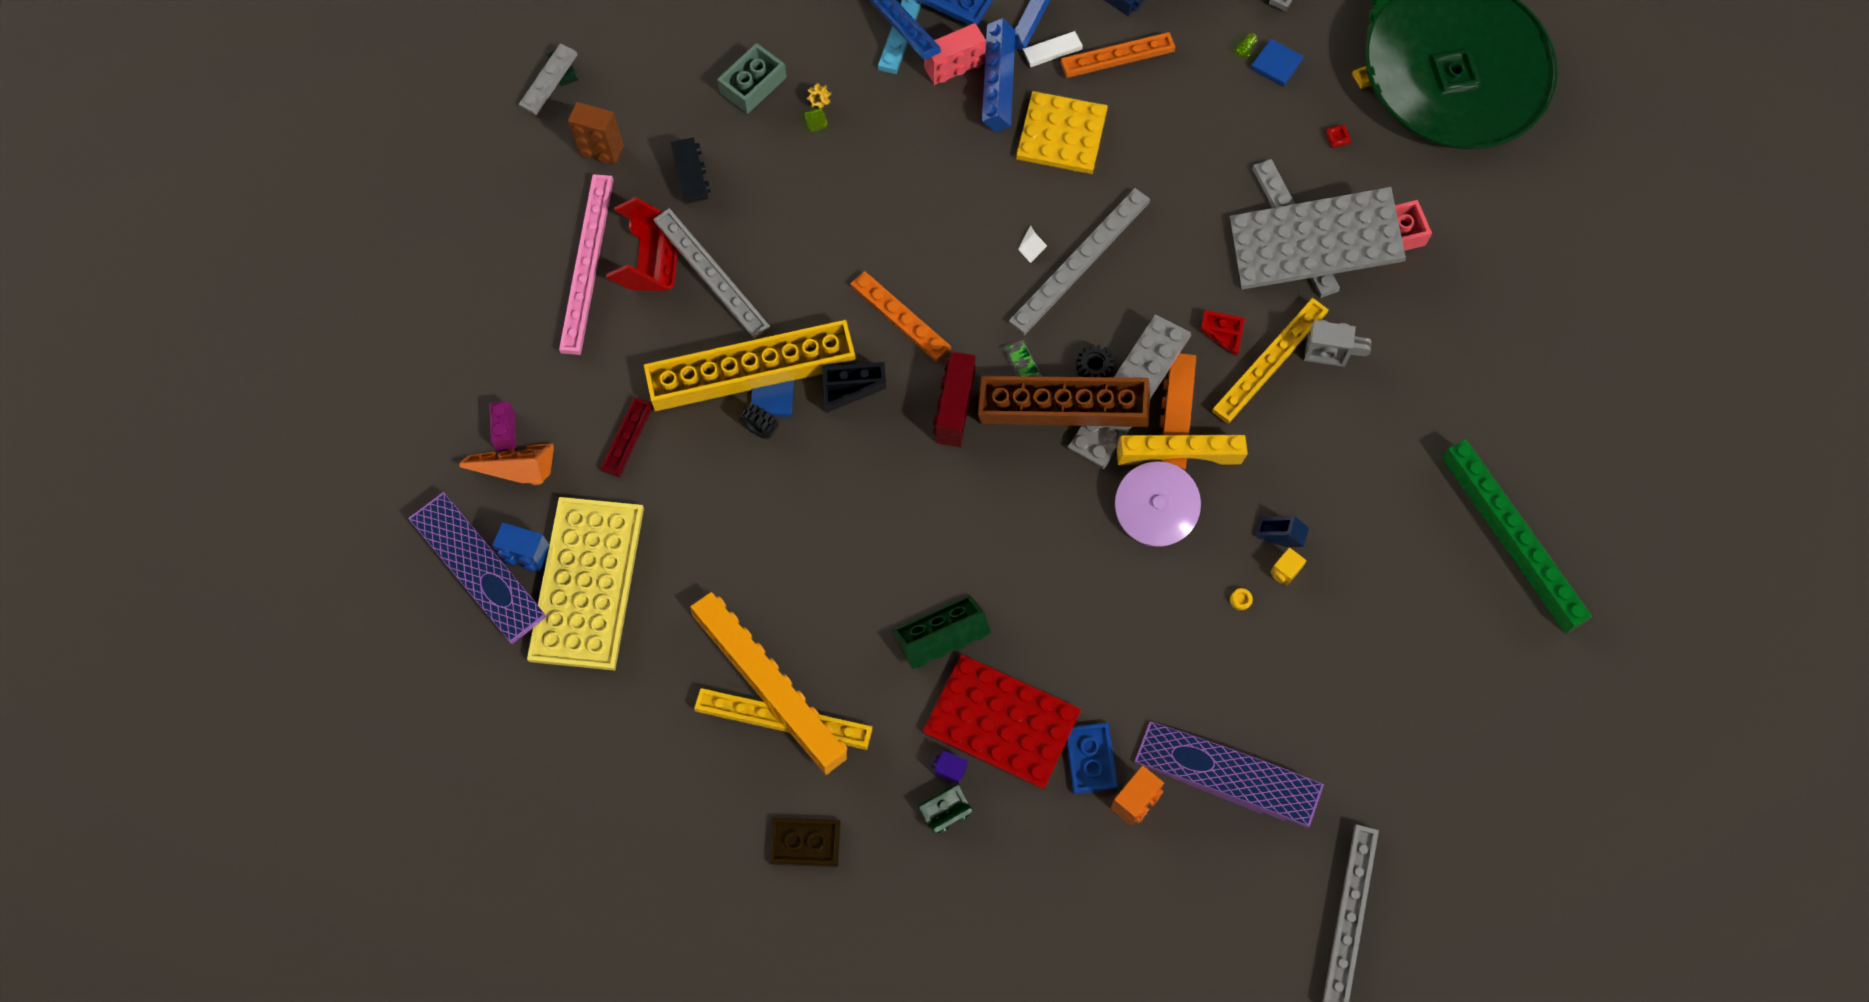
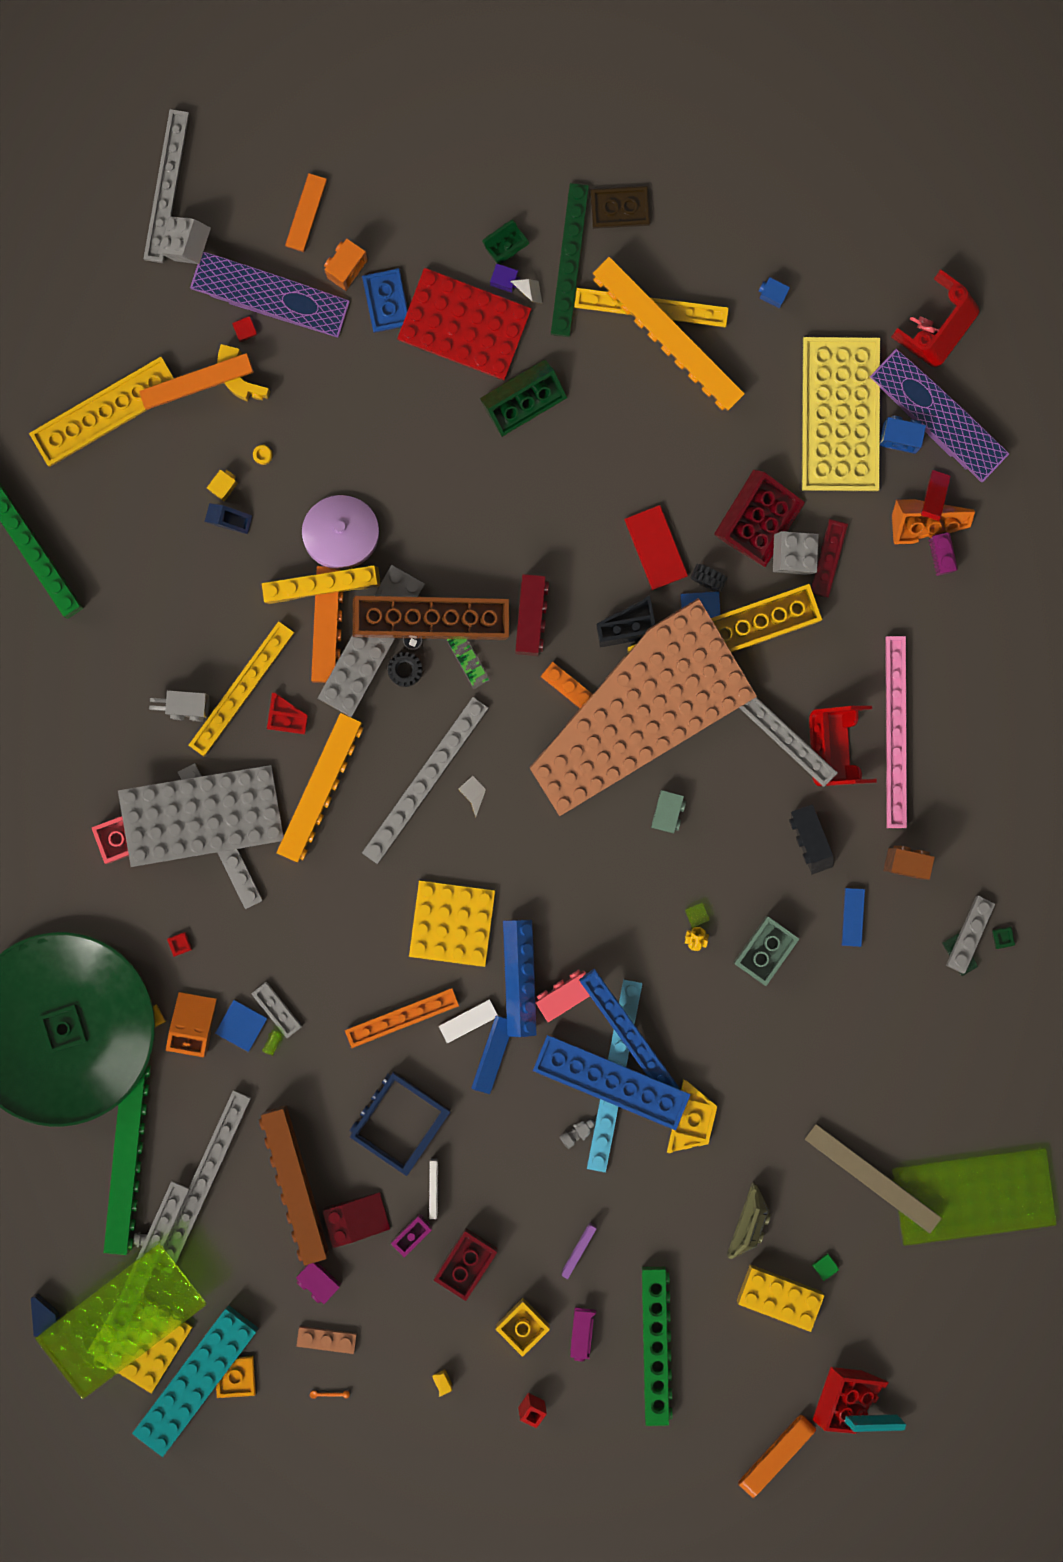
camera: 175 degrees right, 20 degrees up
(425, 679) = (937, 348): none -> red windscreen
(473, 670) = (924, 324): none -> coral plate
(498, 482) = (935, 495): none -> red tile
(516, 77) = (1003, 937): none -> dark green tile
(639, 722) = (773, 292): none -> blue brick
(661, 106) = (853, 917): none -> blue tile
(661, 438) = (795, 553): none -> light grey brick
(695, 481) = (758, 514): none -> dark red slope
(812, 463) = (655, 547): none -> red tile
(830, 306) = (654, 699): none -> nougat wing
(833, 208) = (667, 812): none -> sand green brick
(871, 787) = (569, 260): none -> dark green plate
(922, 750) = (529, 288): none -> white sticker
(1181, 871) = (306, 212): none -> orange tile
(1191, 258) = (319, 788): none -> light orange brick
(1241, 73) = (276, 1009): none -> light grey tile
(1258, 740) = (244, 329): none -> red tile
(1274, 680) = (238, 386): none -> yellow arch
(1317, 676) = (196, 381): none -> orange tile
(1327, 61) = (191, 1025): none -> orange slope
(1330, 842) = (184, 240): none -> light grey brick
(1421, 660) = (98, 414): none -> yellow plate

